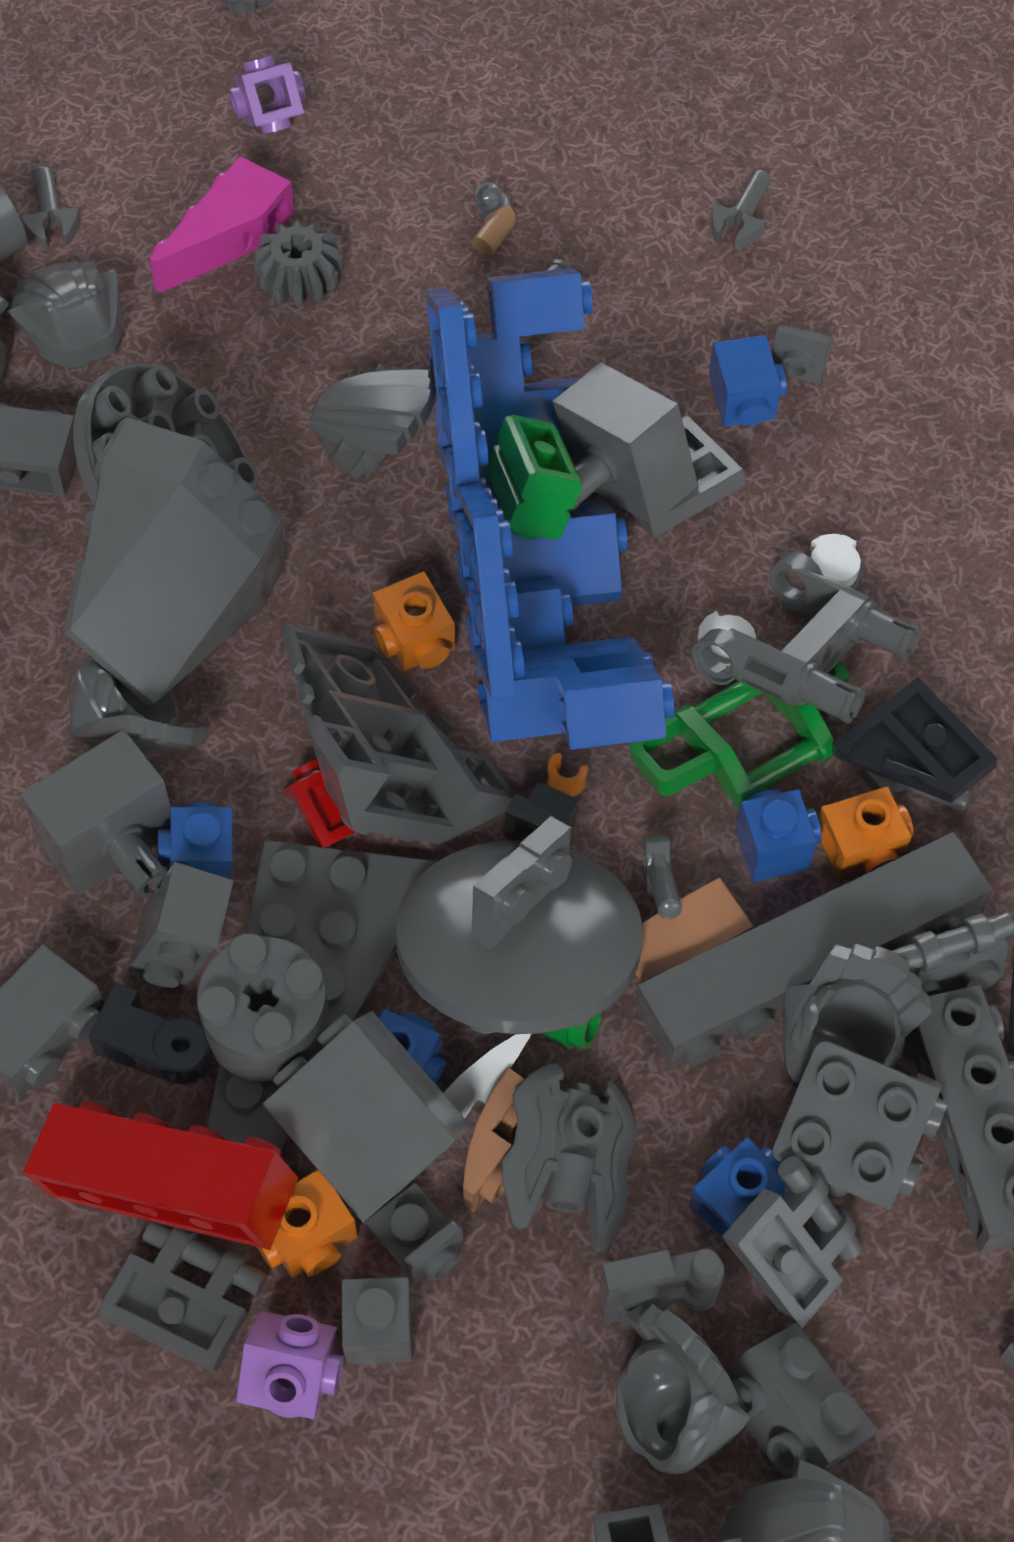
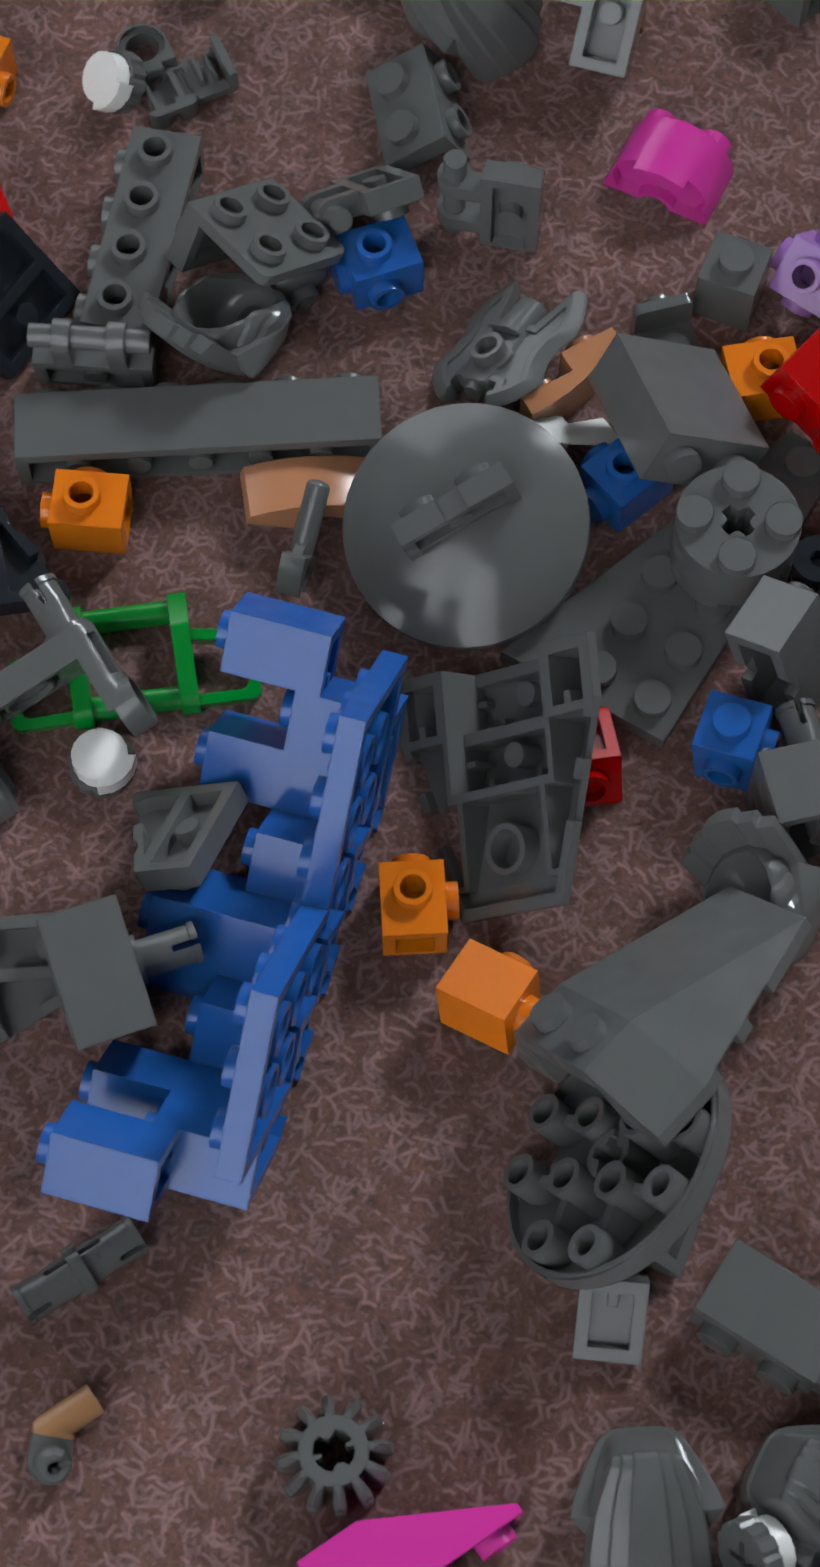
camera: 155 degrees left, 5 degrees up
(318, 572) = (488, 994): none -> orange brick
(371, 417) = (352, 1136): dark grey hair -> none
(499, 1449) = (674, 164): none -> dark pink cylinder
(533, 478) = (225, 929): green brick -> none
(547, 800) = (379, 633): pearl dark grey piece -> none
(622, 580) = (183, 832): none -> dark grey wing
(675, 1395) = (516, 119): dark grey hair -> none
(777, 834) = (173, 536): blue brick -> none

